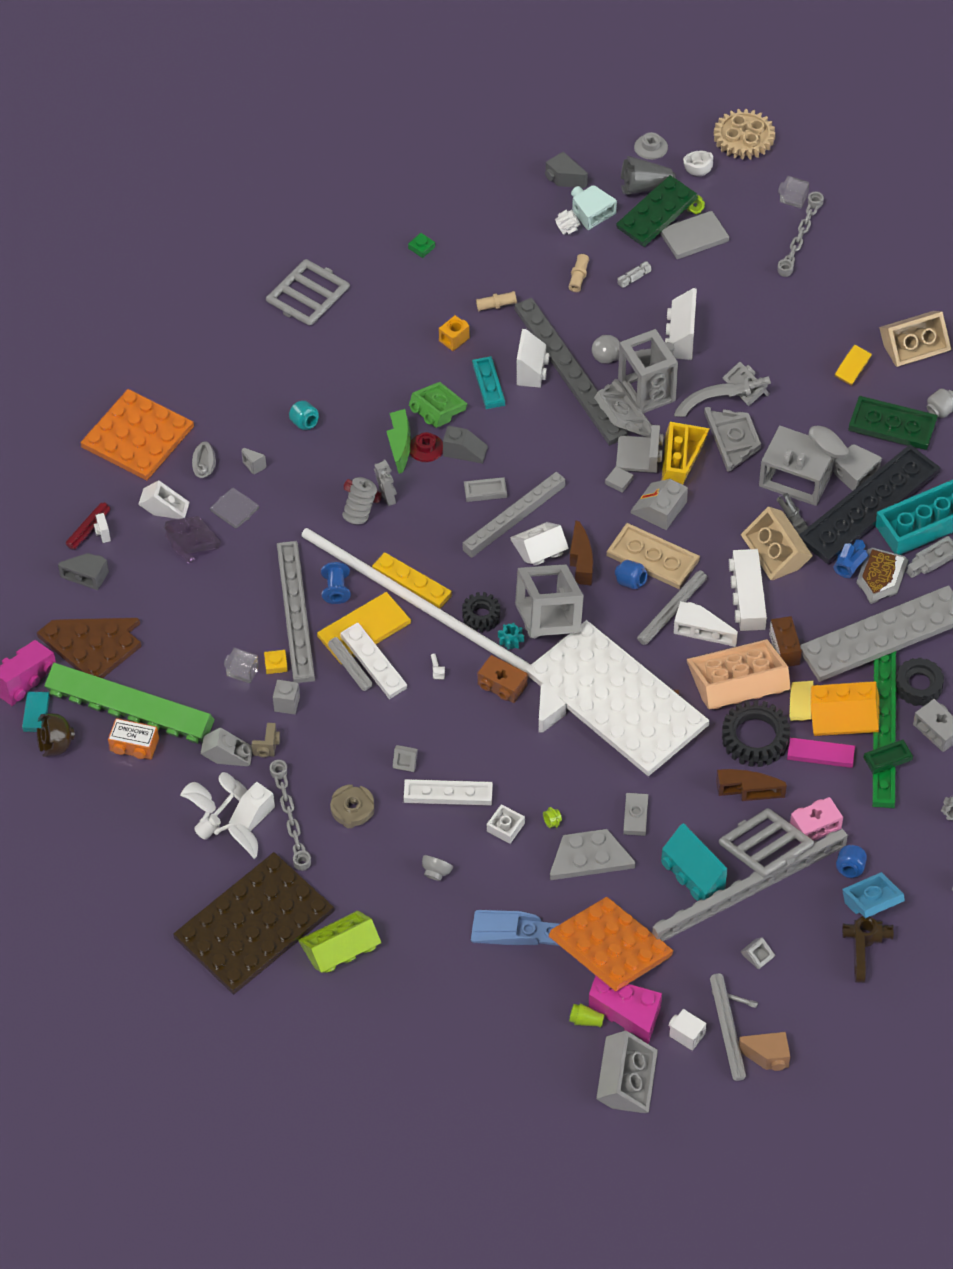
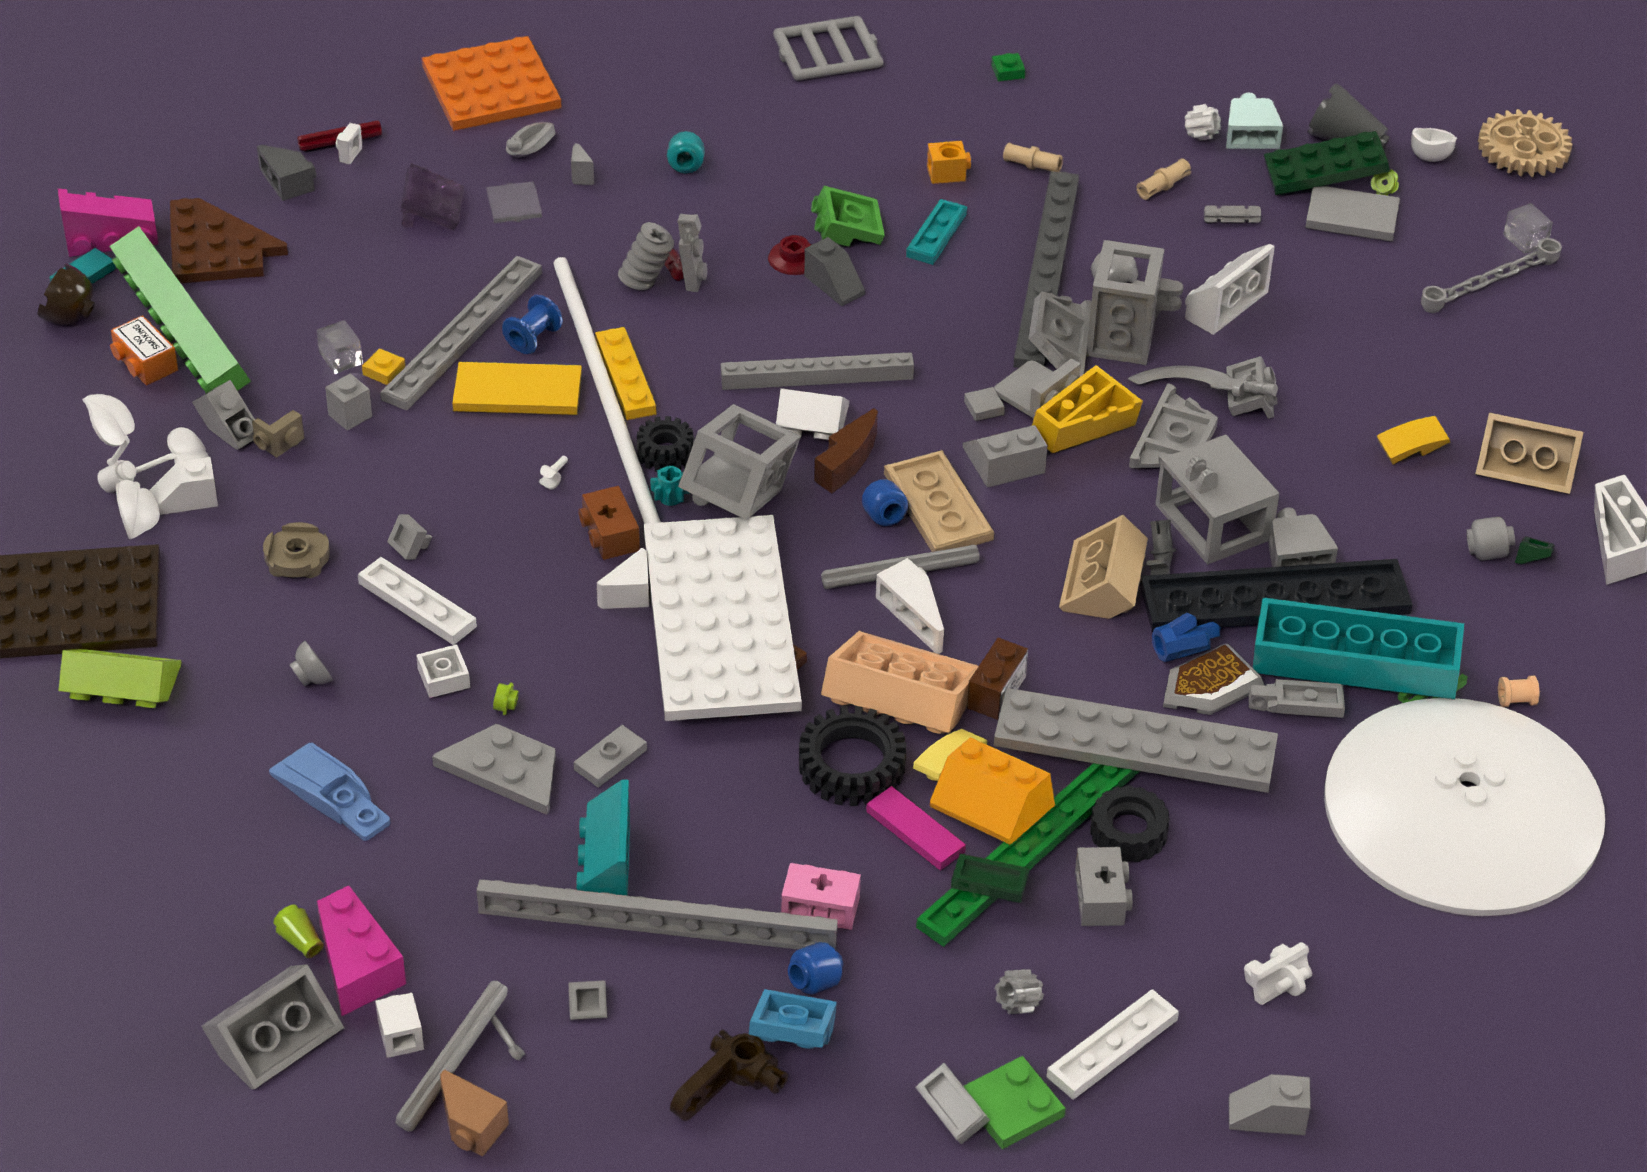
camera: 35 degrees right, 10 degrees down
(163, 501) = (441, 152): white slope -> none
(300, 855) = (179, 569): light grey piece -> none
(350, 664) = (456, 410): light grey axle -> none
(373, 660) = (487, 423): white plate -> none
(400, 438) = (765, 229): bright green slope -> none
(485, 489) = (813, 331): light grey tile -> none
(531, 360) = (1002, 226): white slope -> none
(565, 172) = (1254, 73): dark grey slope -> none
(611, 943) = (408, 866): orange plate -> none
(651, 146) = (1395, 104): light grey piece -> none
(748, 590) = (1014, 597): white brick -> none
(749, 785) = (779, 805): reddish brown slope -> none
(779, 822) = (727, 905): light grey bar -> none
(828, 442) = (1266, 479): light grey arm -> none
(892, 422) = (1402, 527): dark green plate -> none

